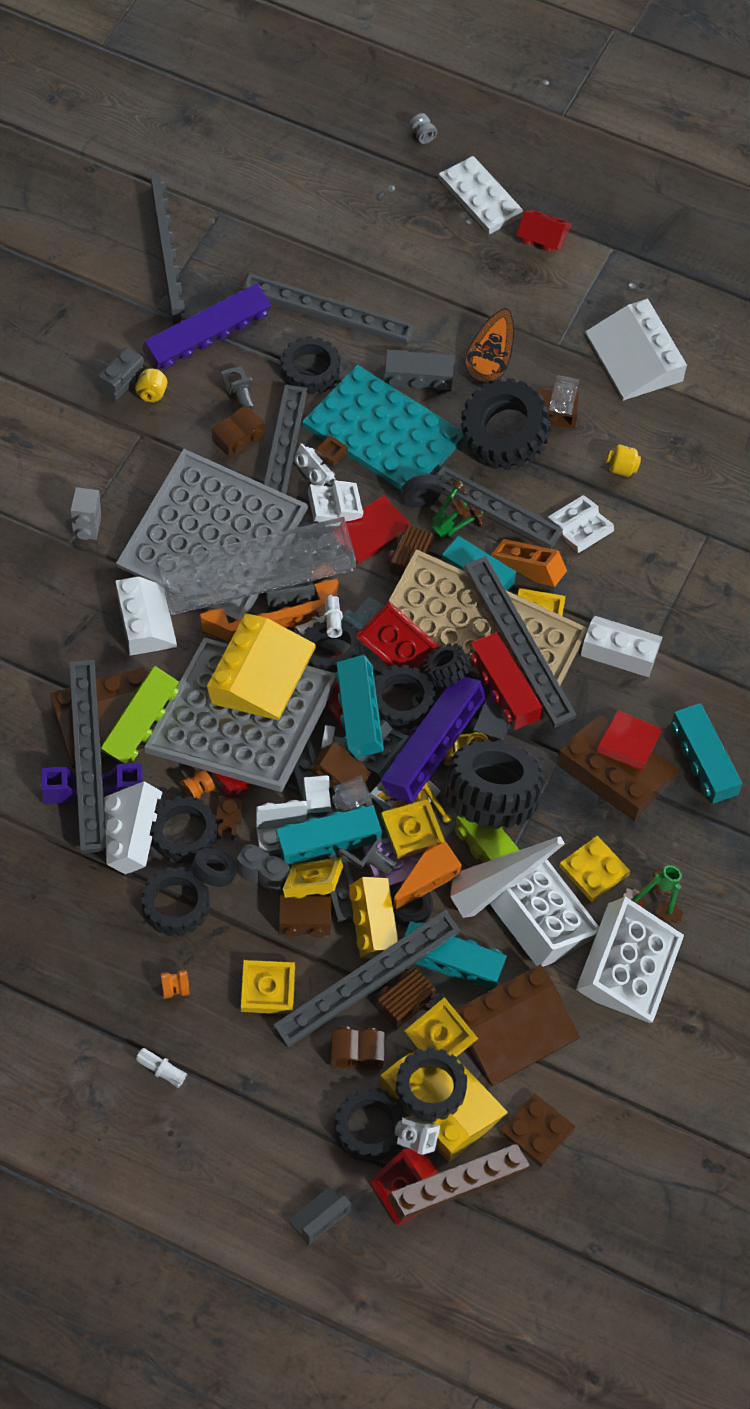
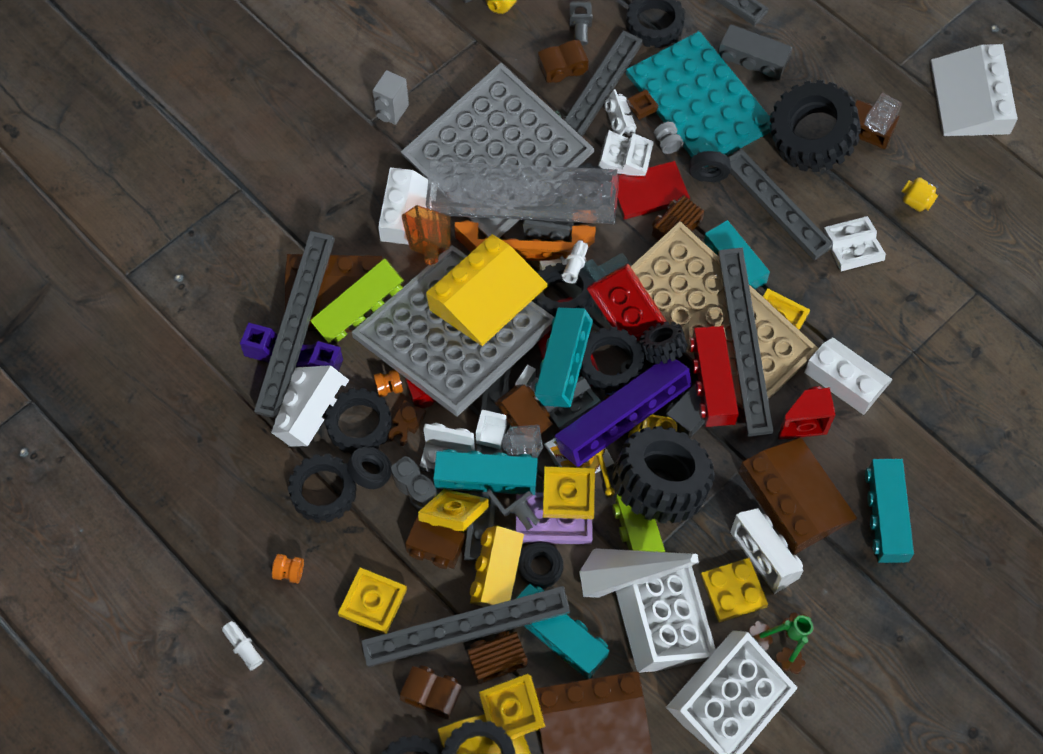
camera: 25 degrees right, 5 degrees up
(177, 631) = (427, 232): none -> clear orange torso
(372, 477) = (667, 135): none -> light grey wheel
(433, 869) = (568, 541): orange slope -> none
(444, 524) = (719, 205): plant -> none
(491, 348) = (832, 50): shield -> none
(532, 561) = (791, 266): orange slope -> none
(604, 691) = (809, 415): none -> red slope
(610, 823) = (766, 549): none -> white slope
(629, 740) = (816, 473): red tile -> none

